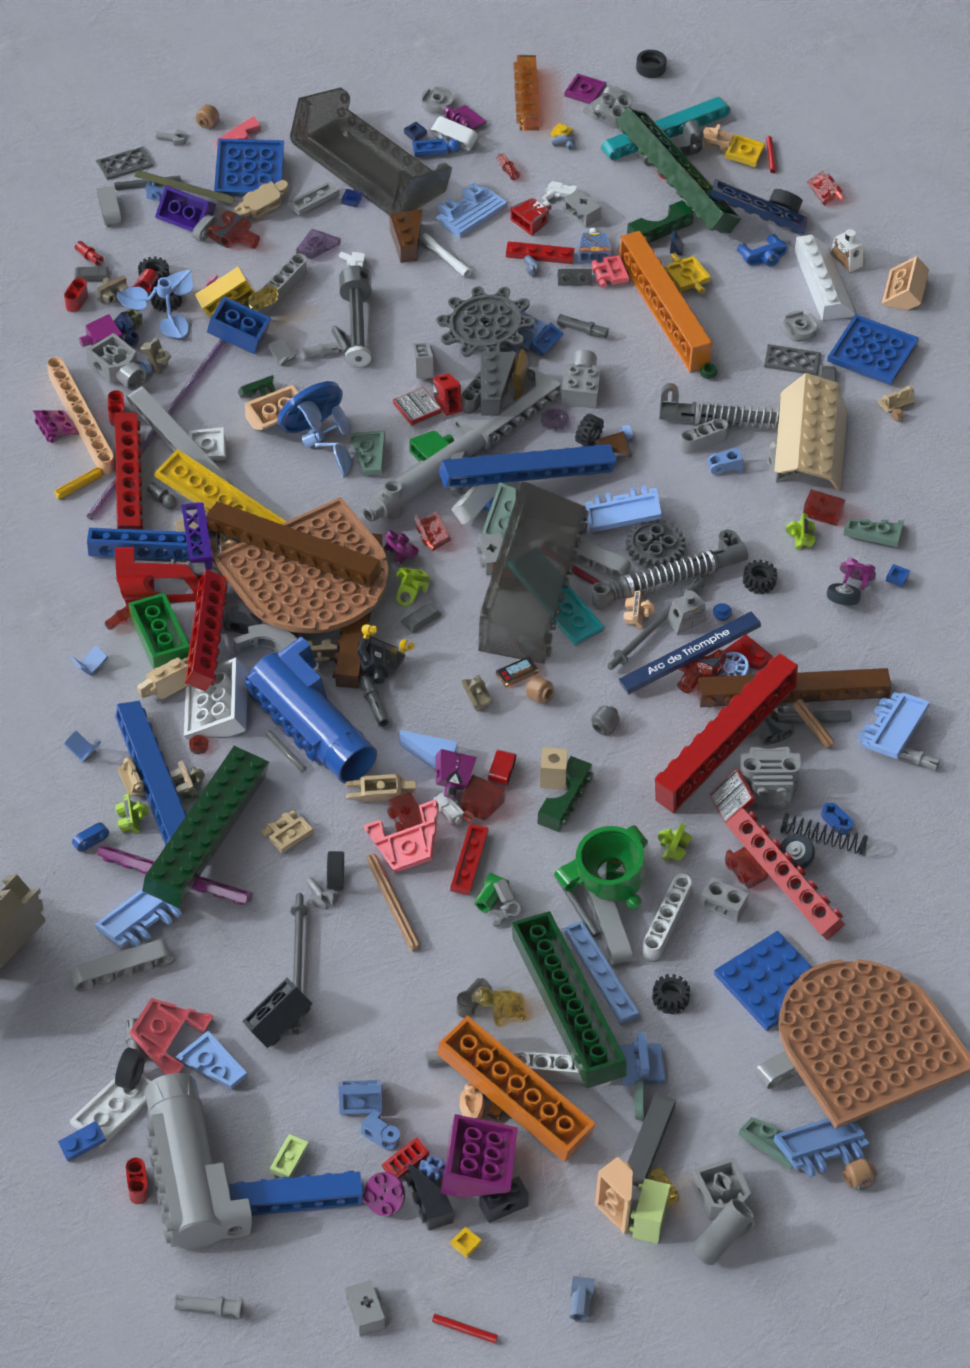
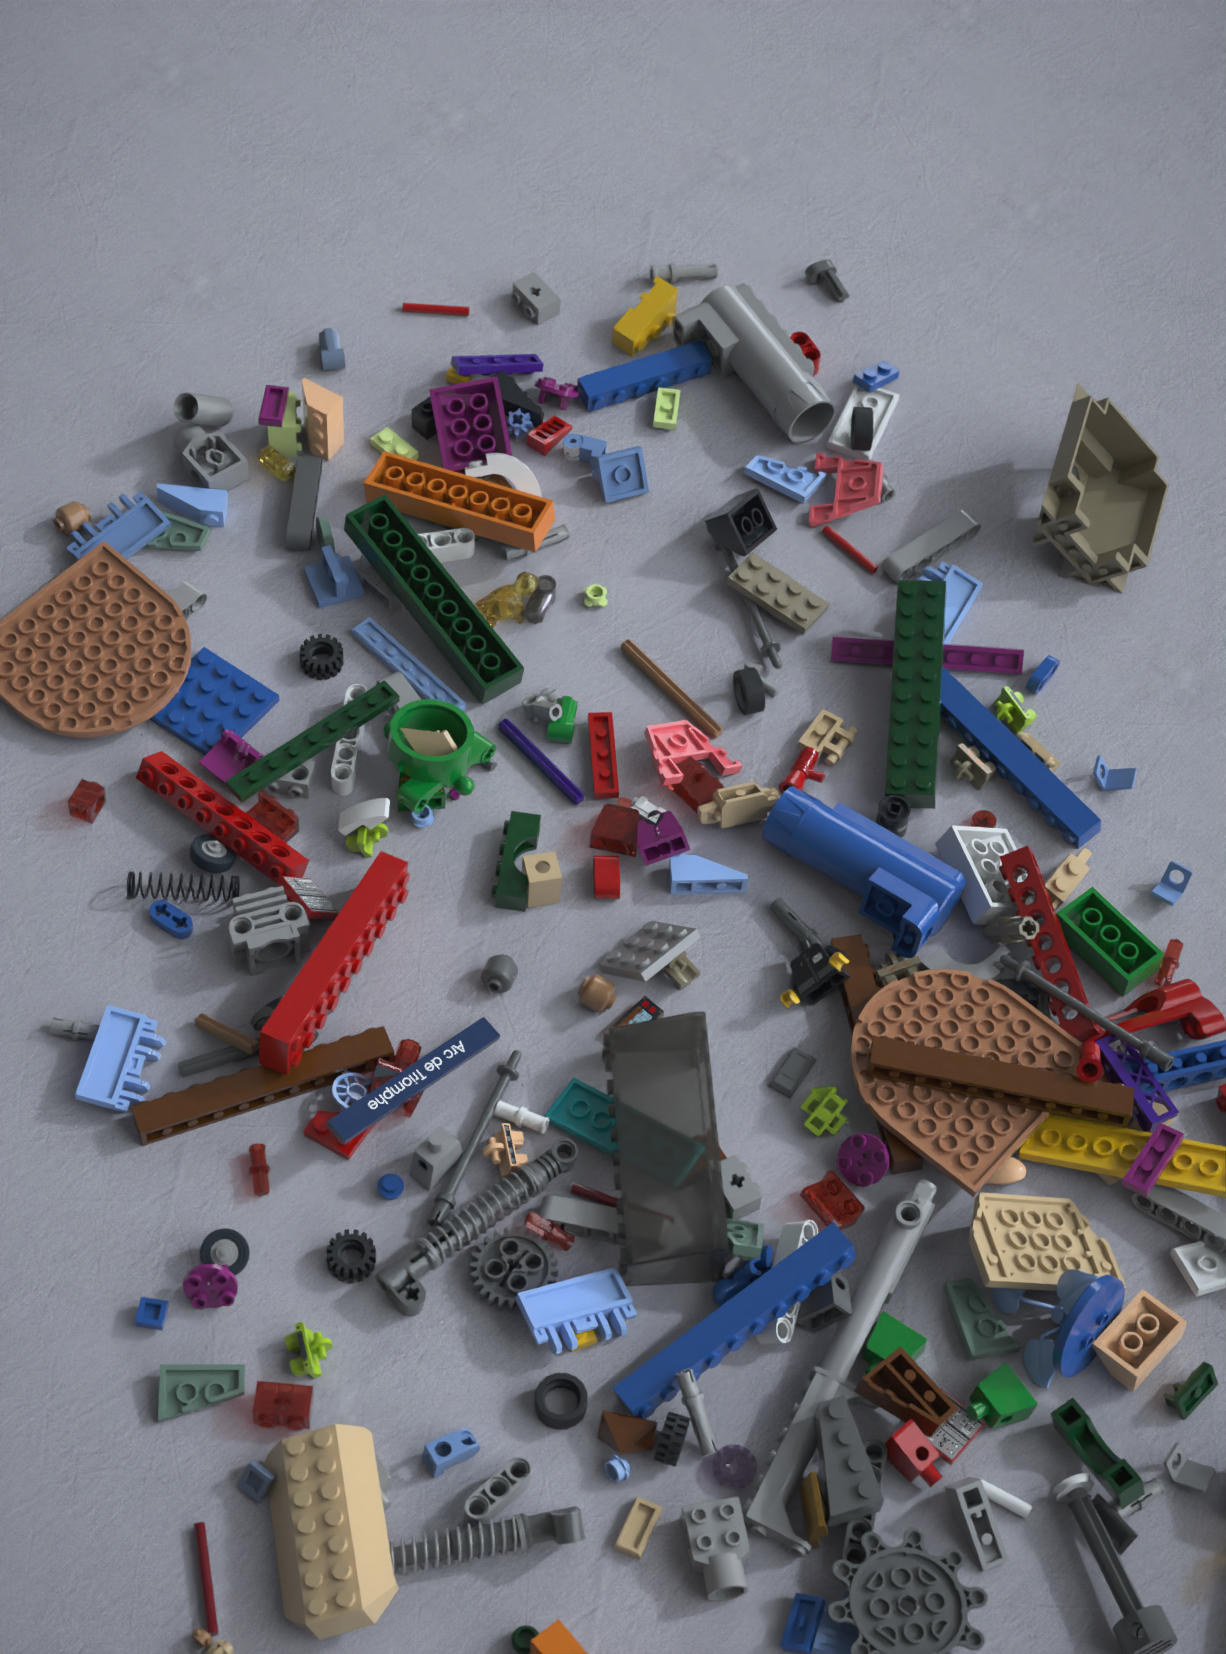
camera: 160 degrees right, 5 degrees up
(71, 1269) = (826, 271): none -> dark grey piece
(182, 535) = (1146, 1049): none -> dark grey bar
(189, 986) = (849, 549): none -> red piece
(216, 480) = (1153, 1159): none -> magenta plate
(225, 539) = (1089, 1066): none -> red piece
(227, 630) = (1011, 929): none -> dark tan piece
(270, 748) = (894, 814): none -> black wheel
(270, 1250) = (648, 318): none -> yellow wedge
(272, 951) = (777, 593): none -> dark tan plate
(314, 464) = (1033, 1241): none -> tan plate
(321, 808) = (802, 770): none -> red piece
(332, 351) = (1082, 1437): none -> dark green arch
(378, 406) = (1001, 1399): none -> green torso
(403, 372) = (1006, 1500): none -> white piece
(424, 989) = (595, 595): none -> yellowish green plate
(431, 1232) = (494, 364): none -> dark purple plate
(440, 408) = (907, 1393): none -> reddish brown wedge
(466, 1104) = (509, 467): none -> white arch
(494, 695) = (649, 950): none -> light grey plate
(519, 869) = (541, 761): none -> dark purple axle
(551, 1182) = (390, 442): none -> yellowish green plate
(569, 436) = (693, 1400): none -> light grey pin
(612, 860) = (430, 742): none -> tan slope
(619, 628) = (521, 1117): none -> white pin
(624, 406) = (638, 1528): none -> tan tile
(627, 552) = (548, 1230): none -> clear red axle
(653, 462) = (562, 1421): none -> black tyre
(659, 1200) = (273, 406): none -> magenta tile
(676, 837) = (365, 813): none -> white slope
(699, 901) = (312, 741): none -> dark green plate
(748, 1160) = (198, 504): none -> light blue slope
(763, 922) = (229, 756): none -> magenta hinge
(808, 641) = (259, 1169): none -> clear red axle
(848, 475) = (256, 1480): none -> sand blue plate
(886, 917) = (87, 801): none -> clear red brick
(889, 442) = (206, 1578): none -> dark red bar

